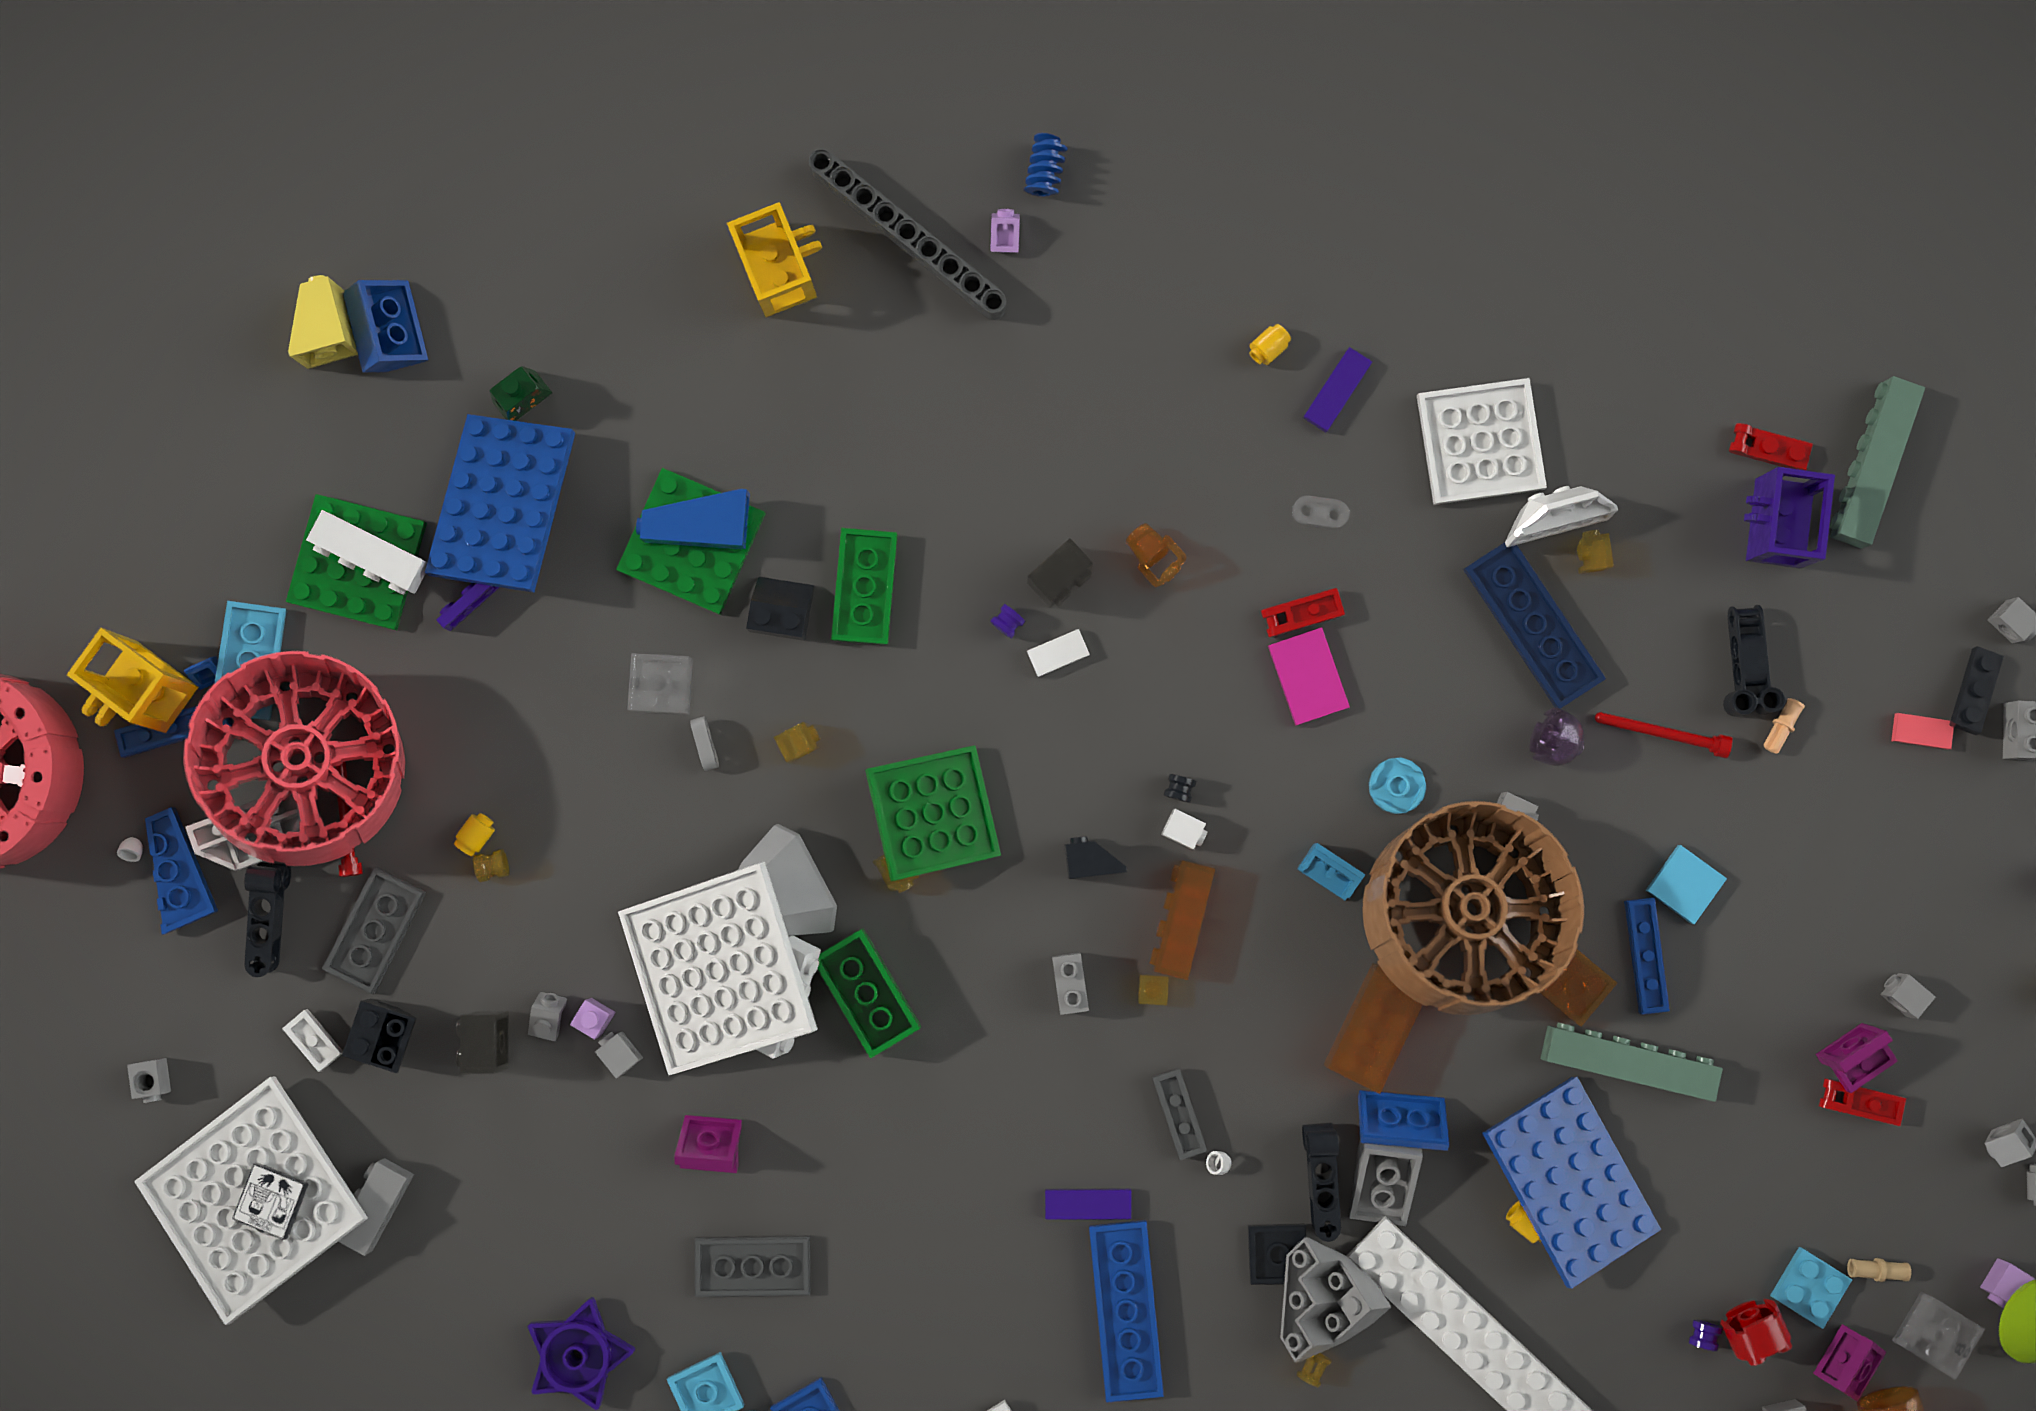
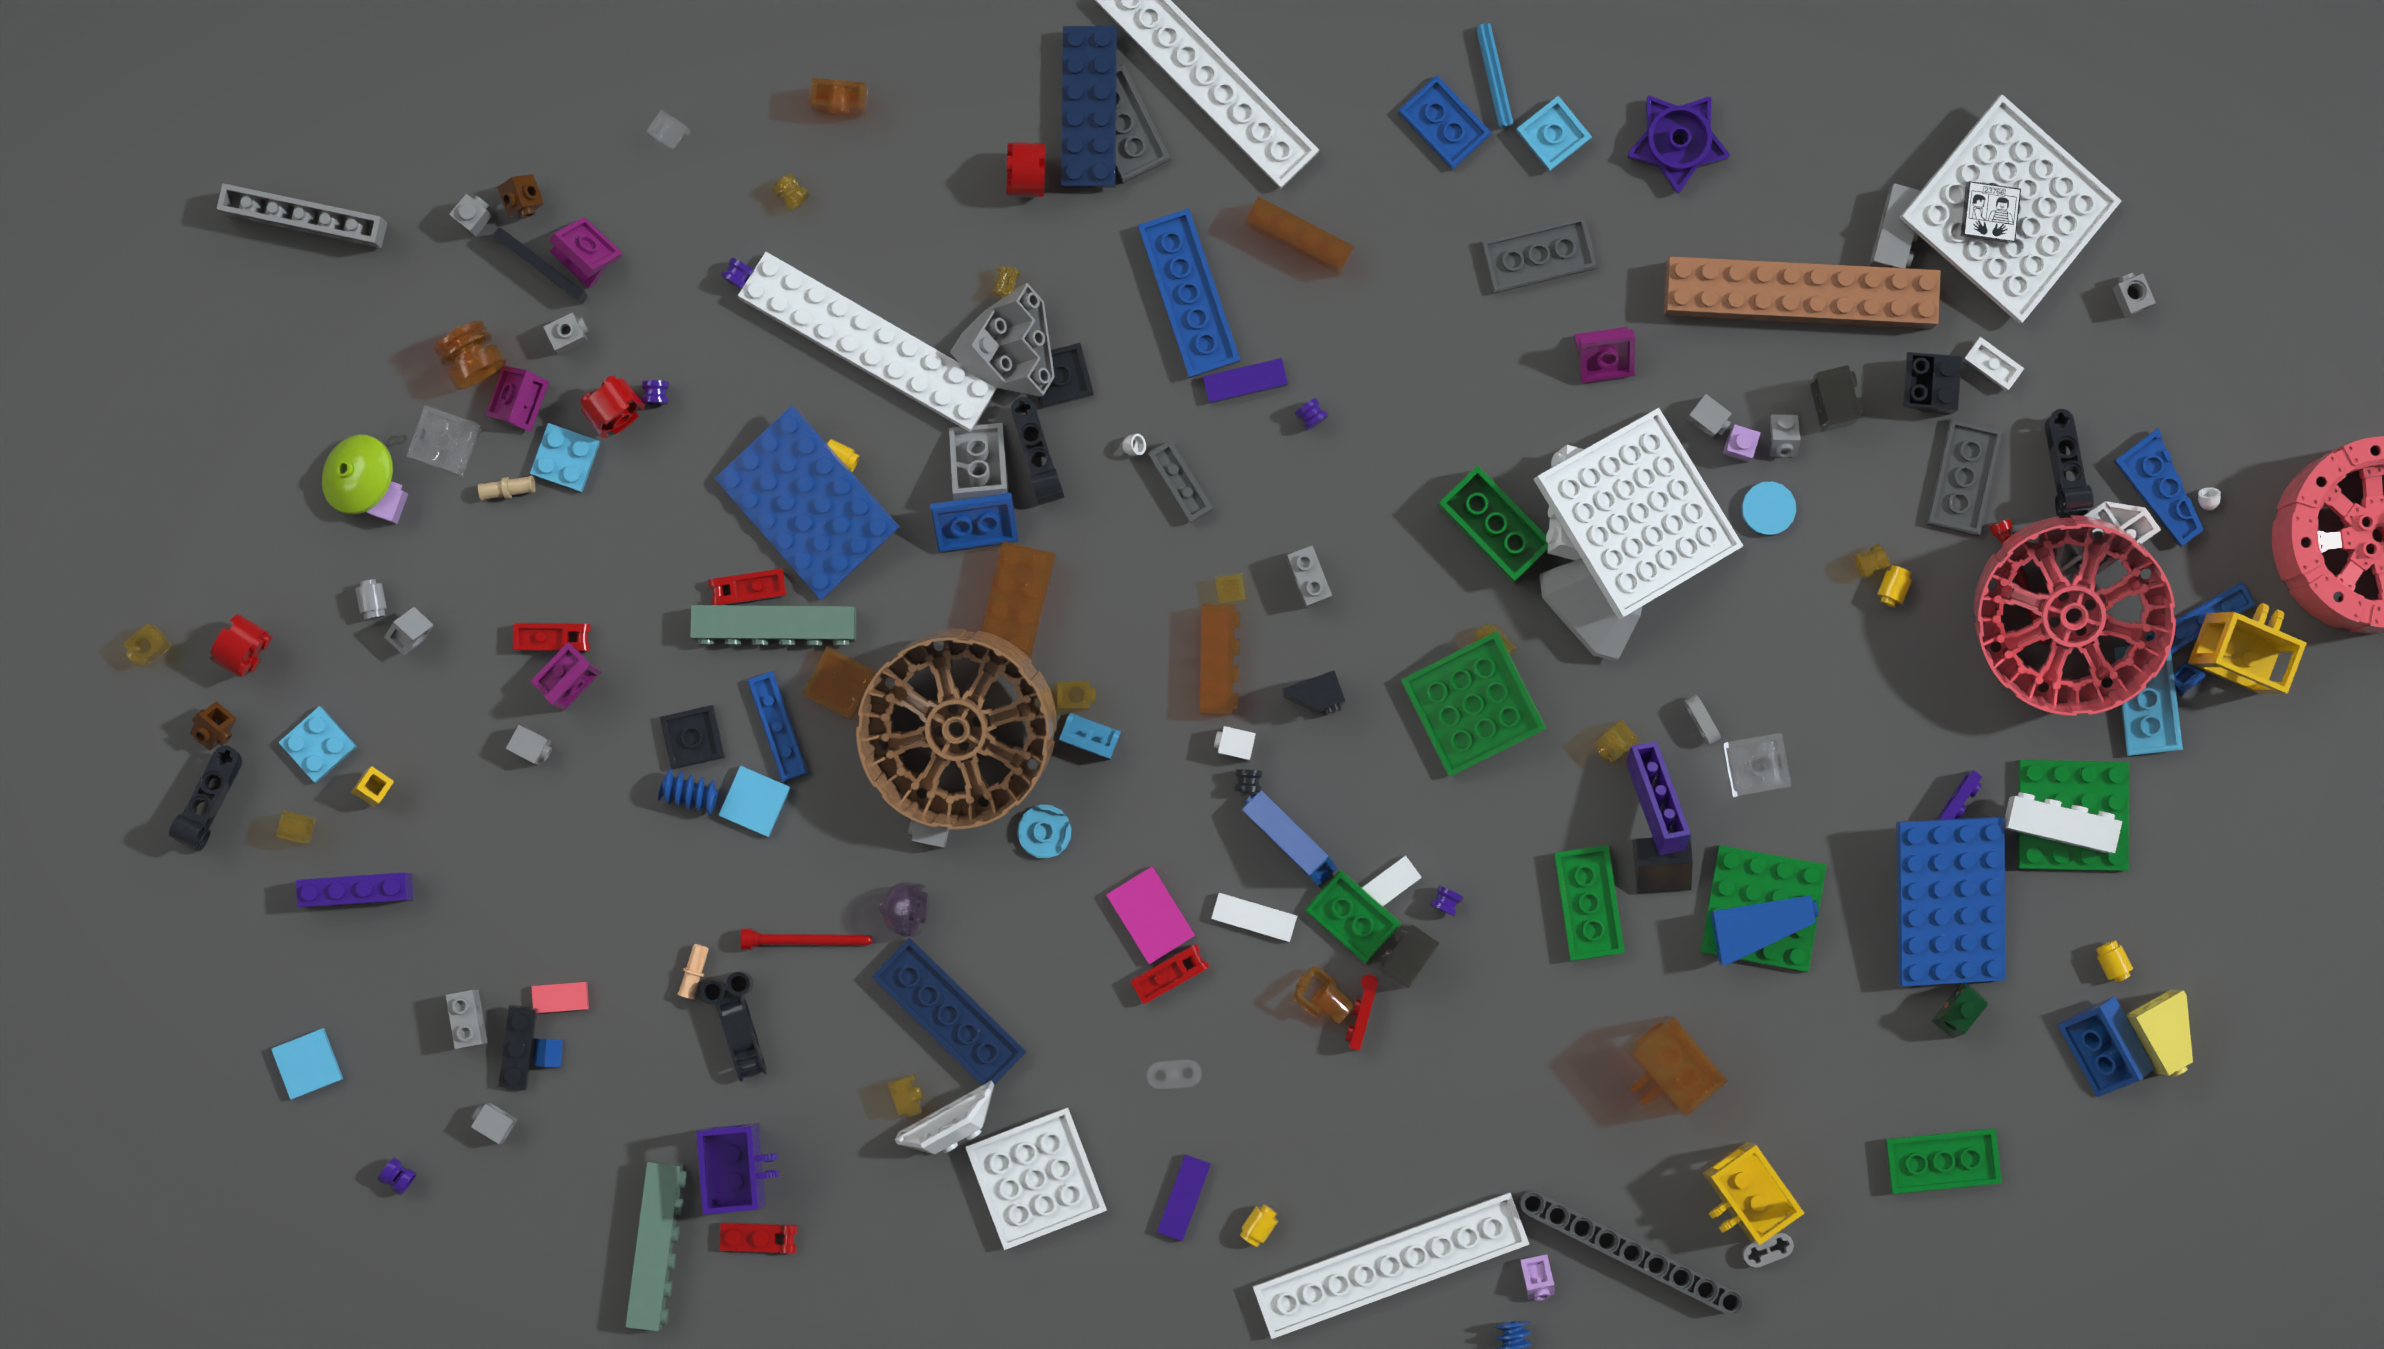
camera: 170 degrees right, 0 degrees up
(354, 407) = (2114, 961): none -> yellow brick
(490, 1161) = (1802, 292): none -> nougat brick
(576, 252) = (1943, 1161): none -> green plate
(582, 944) = (1768, 508): none -> medium azure tile
(769, 199) = (1769, 1256): none -> light grey beam
(769, 672) = (1658, 798): none -> dark purple brick
(820, 399) = (1674, 1067): none -> clear orange piece
(997, 1345) = (1299, 235): none -> clear orange brick
(1028, 1152) = (1311, 414): none -> dark purple wheel
(1105, 628) = (1353, 916): none -> green tile
(1118, 531) = (1362, 1011): none -> red plate
(1147, 276) = (1390, 1265): none -> white plate
(1152, 720) = (1289, 838): none -> slope
(1204, 650) = (1254, 917): none -> white tile
(1349, 920) = (1064, 689): none -> clear yellow brick
(1648, 1106) = (748, 587): none -> red plate
(1736, 964) = (692, 737): none -> black tile
(1754, 908) = (688, 791): none -> blue piece
(1945, 678) = (548, 1052): none -> blue slope

